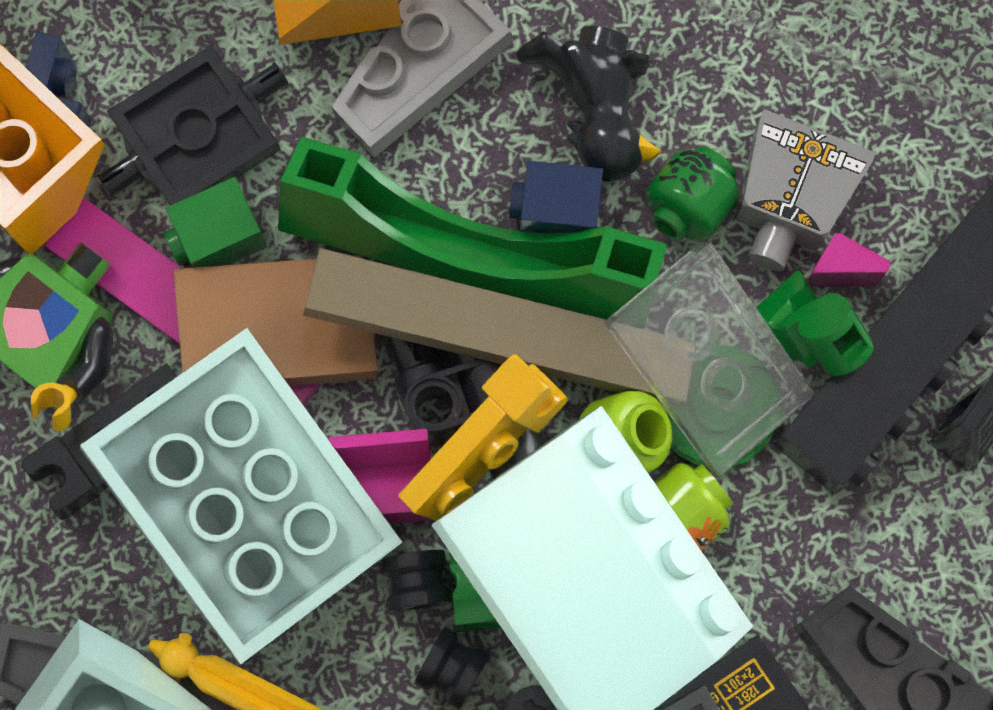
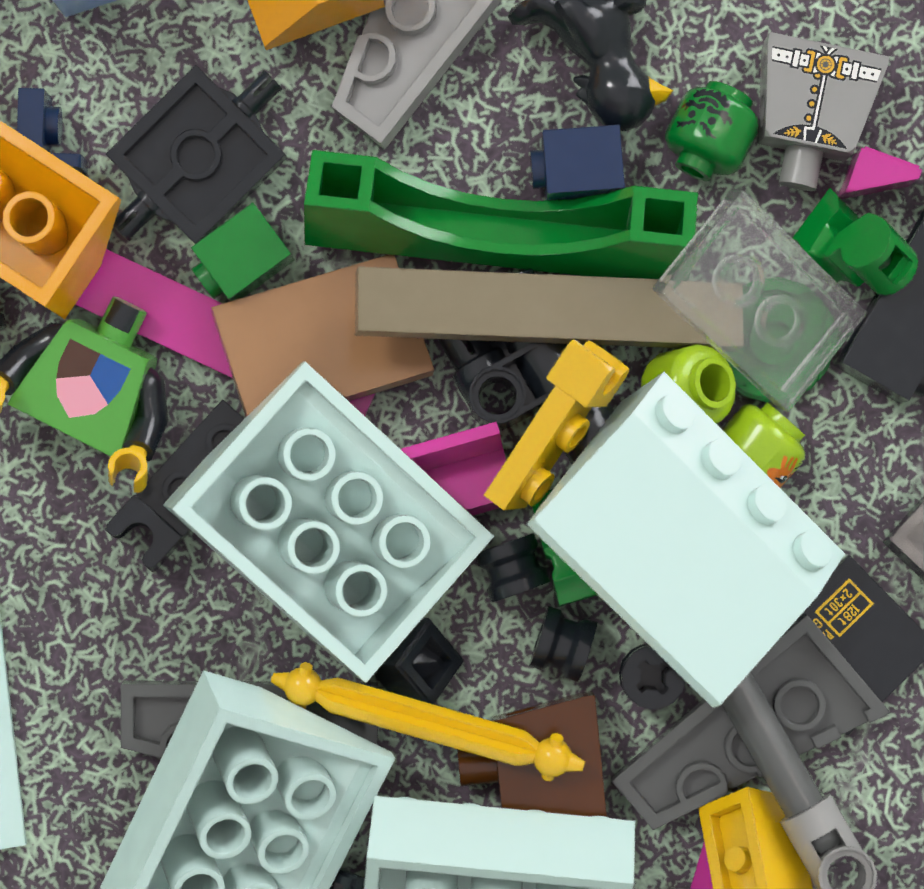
camera: 15 degrees left, 10 degrees up
(303, 659) = (420, 664): none -> black slope

